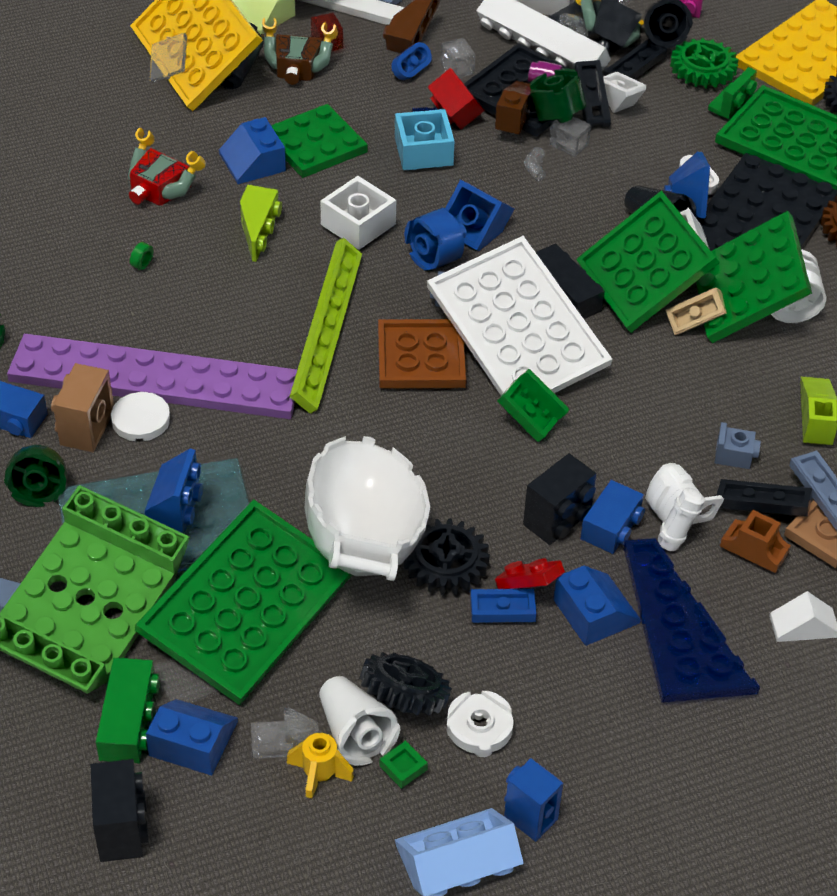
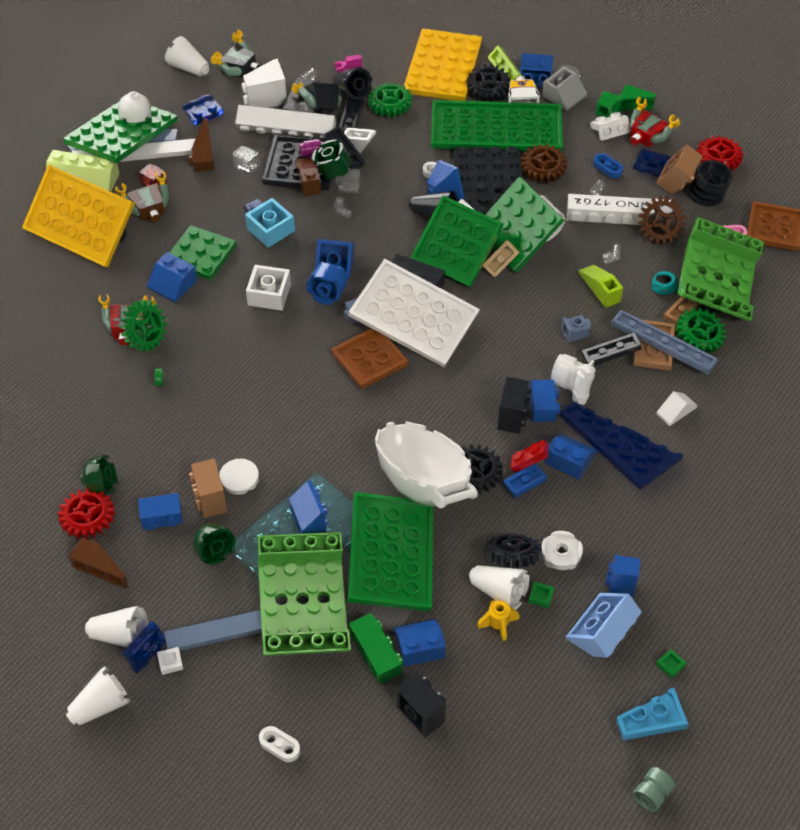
camera: 30 degrees left, 5 degrees up
(168, 57) = (69, 239): clear piece -> none
(172, 376) = (237, 442): medium lavender plate -> none
(184, 201) = (147, 324): none -> green gear
(258, 213) = (207, 319): lime slope -> none
(279, 737) = (467, 616): clear slope -> none
(326, 326) = (303, 367): lime plate -> none
(408, 65) = (219, 174): blue plate -> none
(455, 98) = (267, 187): red brick -> none
(532, 405) = (457, 357): green bracket -> none
(735, 94) = (421, 113): green bracket -> none
(757, 541) = (625, 376): dark orange brick -> none

